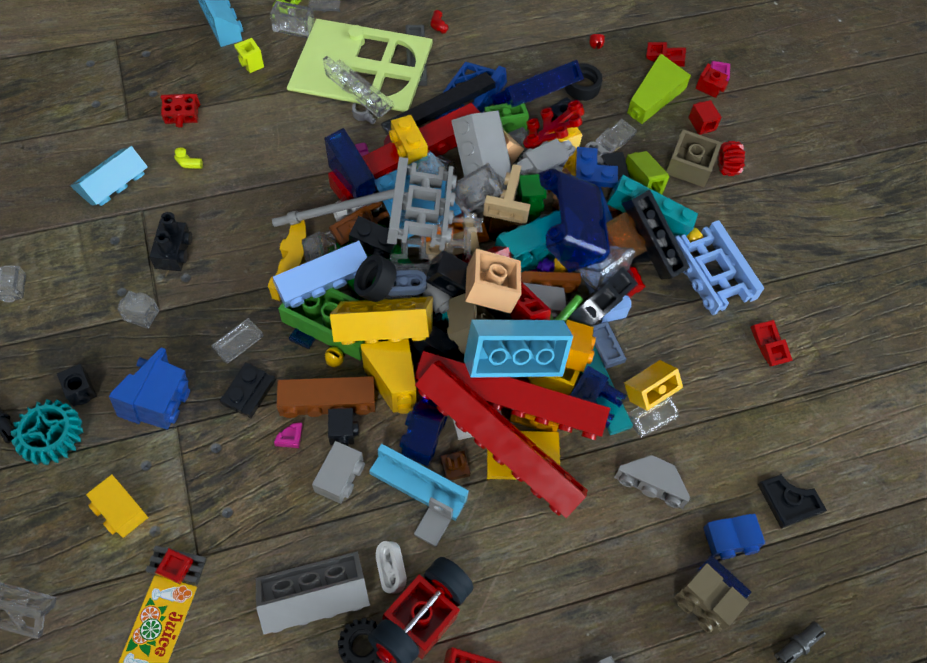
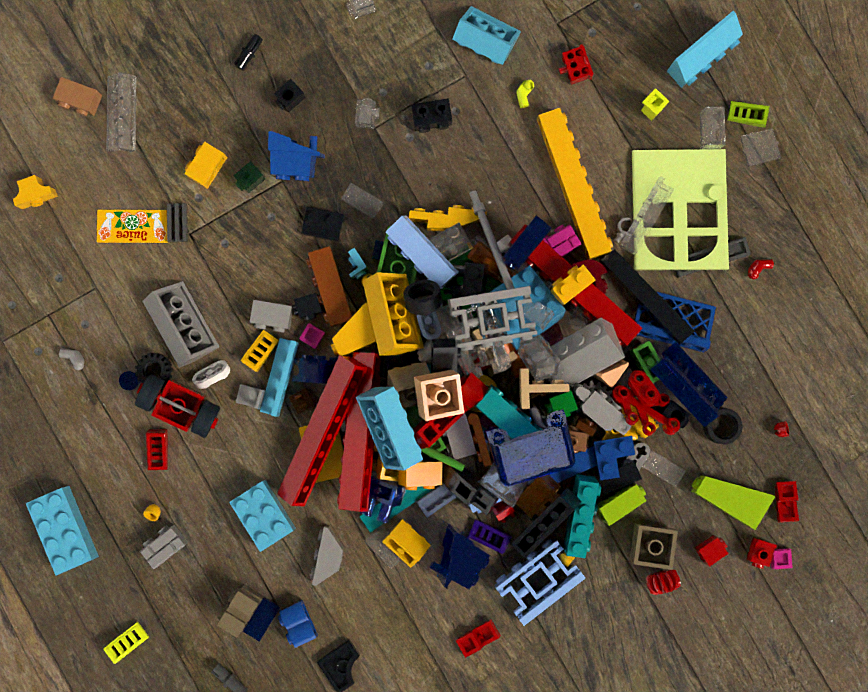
camera: 75 degrees right, 25 degrees up
(35, 426) = (253, 86): teal gear -> none
(155, 456) = (248, 177): none -> clear green brick
(174, 566) = (173, 222): red tile -> none
(290, 436) = (293, 269): dark pink tile -> none
(292, 138) = (574, 184): none -> yellow brick
(307, 358) = (356, 260): none -> medium azure bracket
(378, 434) = (312, 335): none -> dark pink tile
(385, 519) = (245, 359): none -> yellow slope
(532, 121) = (643, 387): none -> red plate
(589, 544) = (262, 515): none -> medium azure brick
(667, 290) = (501, 549): none -> dark purple slope
(680, 330) = (460, 560): none -> clear blue piece

